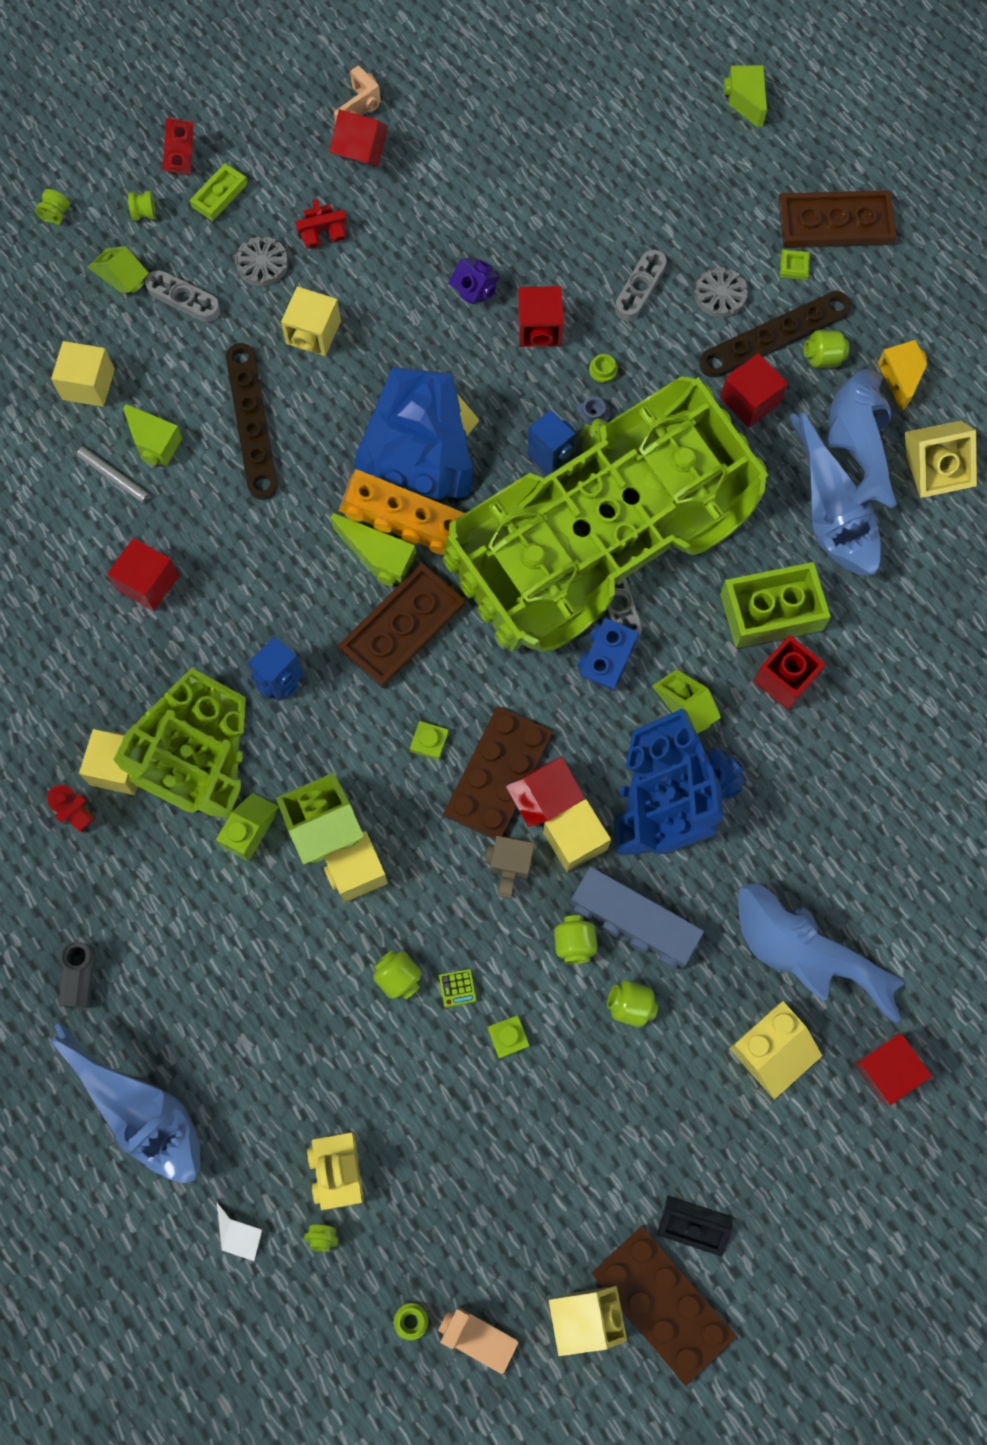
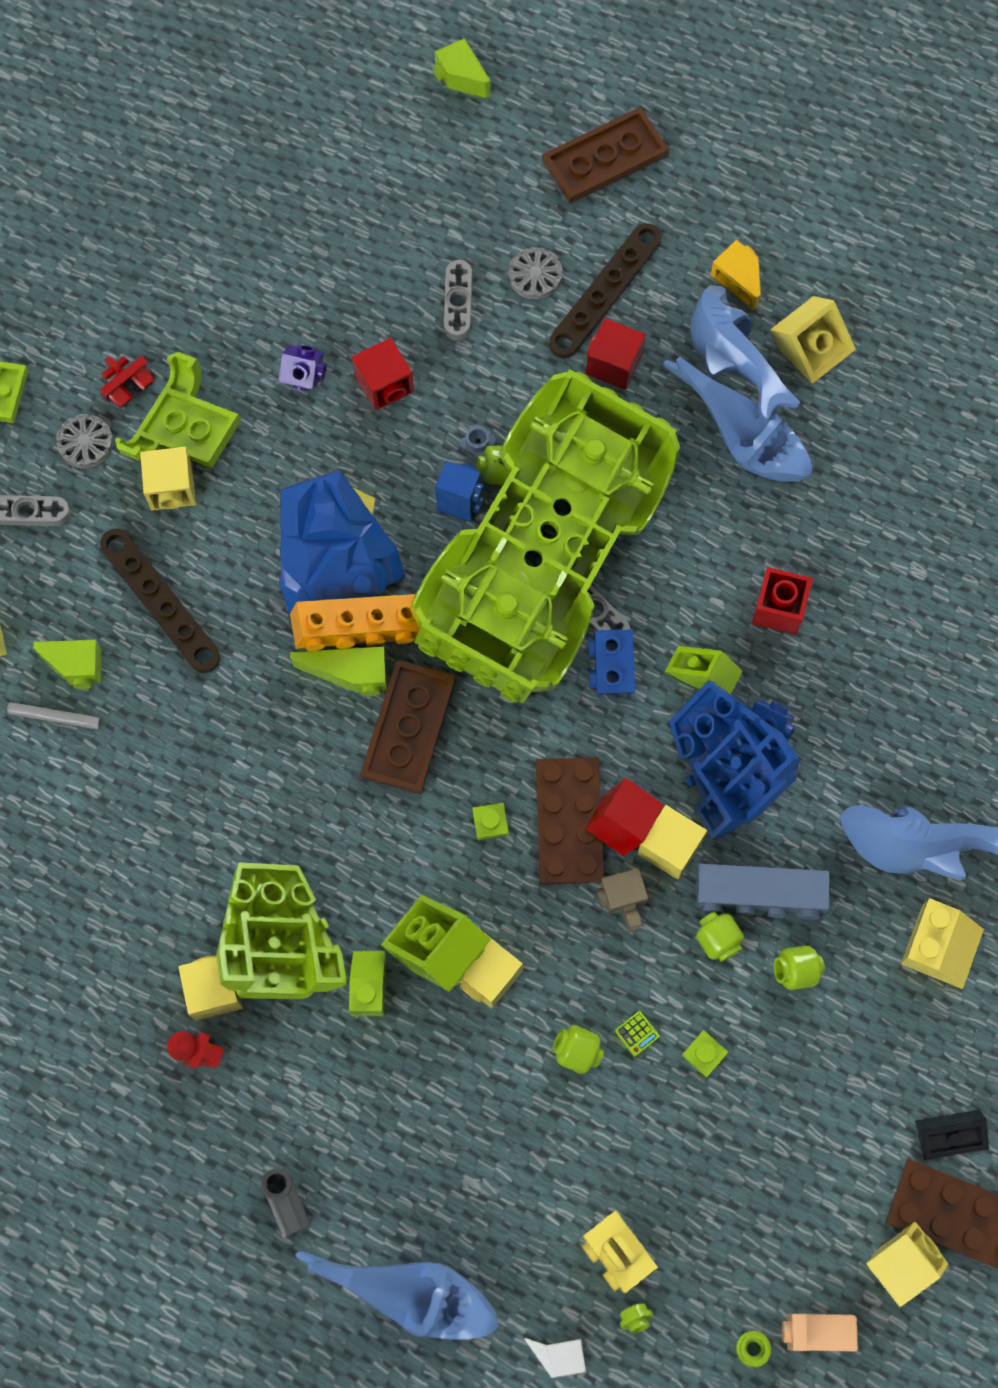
camera: 25 degrees left, 0 degrees up
(143, 574) = (140, 797): red head -> none
(276, 670) = (318, 826): blue brick -> none
(352, 279) = (183, 419): none -> lime piece
(358, 138) = (118, 279): red head -> none
(368, 93) = (100, 226): light nougat bracket -> none
(603, 368) = (465, 396): lime plate -> none
(774, 605) = (737, 545): lime brick -> none
(794, 264) = (588, 215): lime tile -> none
(826, 349) = (660, 284): lime head -> none

